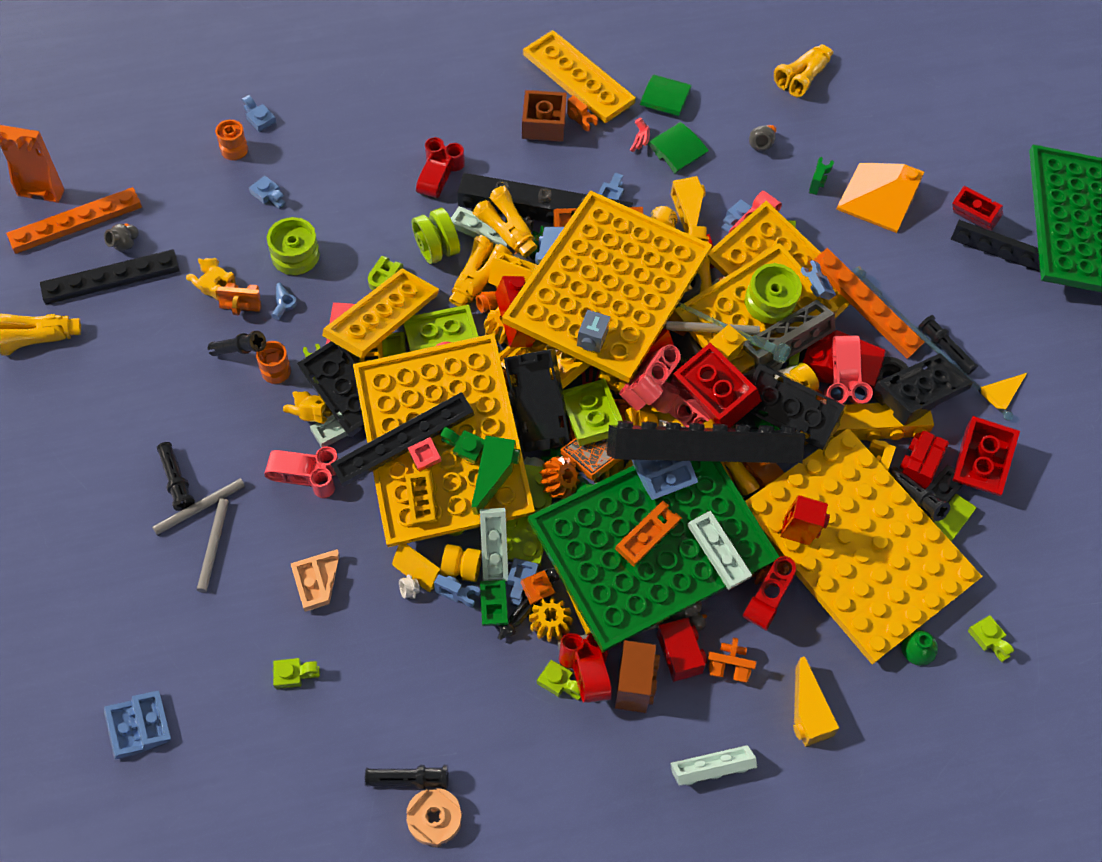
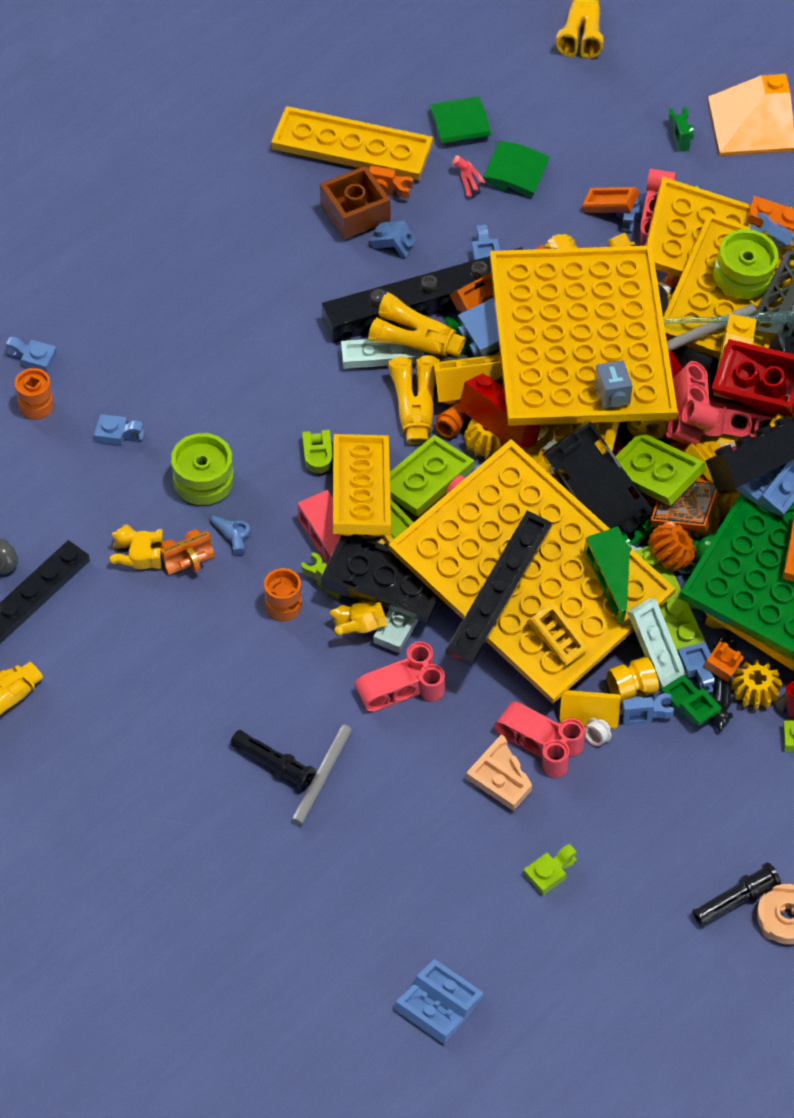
camera: 30 degrees left, 5 degrees down
(212, 545) = (368, 802): light grey bar -> none
(242, 343) = (244, 589): black pin -> none
(366, 569) = (542, 736): none -> coral piece
(424, 454) = (532, 590): coral plate -> none
(436, 235) = (348, 381): lime wheel -> none
(439, 164) = (283, 306): red piece -> none
(465, 446) = (567, 561): green plate -> none
(555, 152) = (393, 235): none -> medium blue bracket
(688, 198) = (571, 216): yellow slope -> none
(726, 201) = (610, 200): none -> orange tile
(762, 137) = (596, 117): dark grey animal -> none

